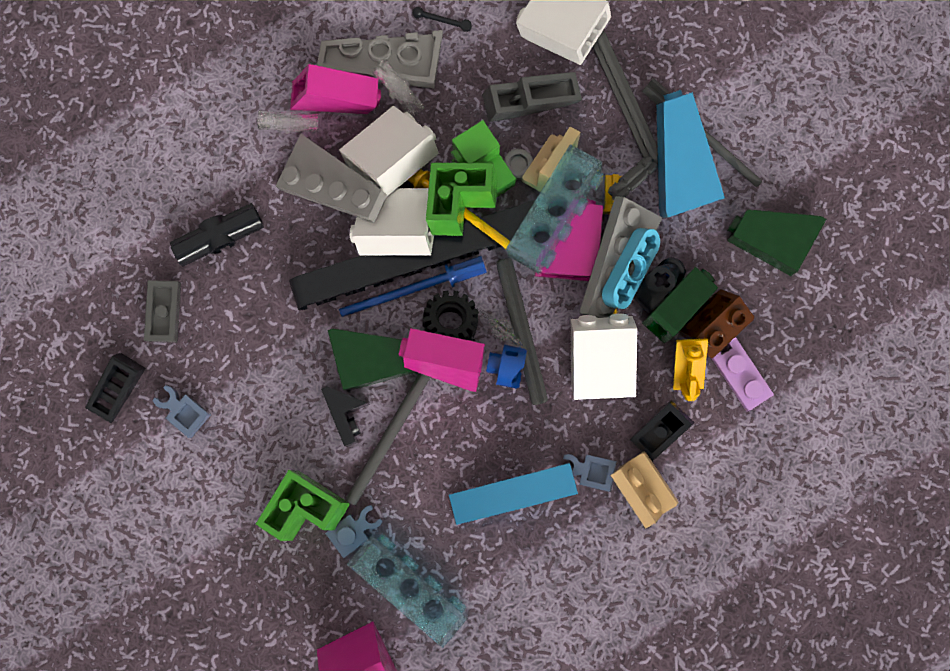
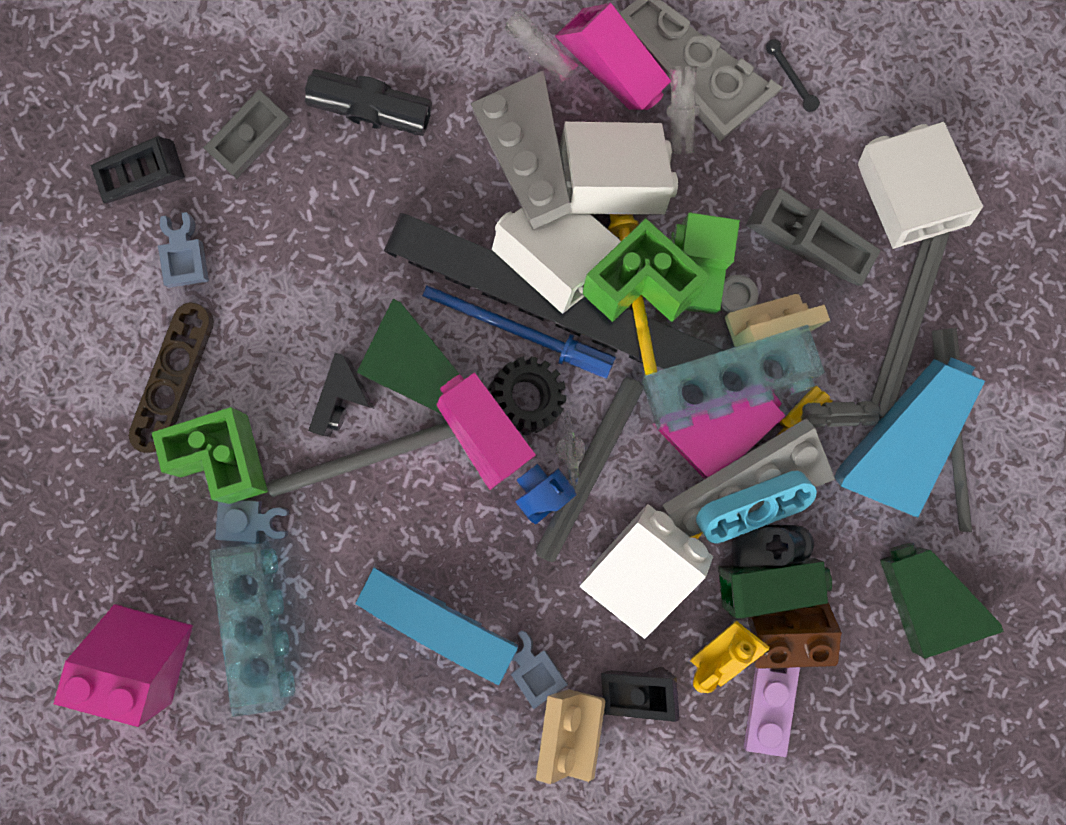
camera: 40 degrees right, 5 degrees up
(232, 490) = (164, 374): none -> dark brown beam

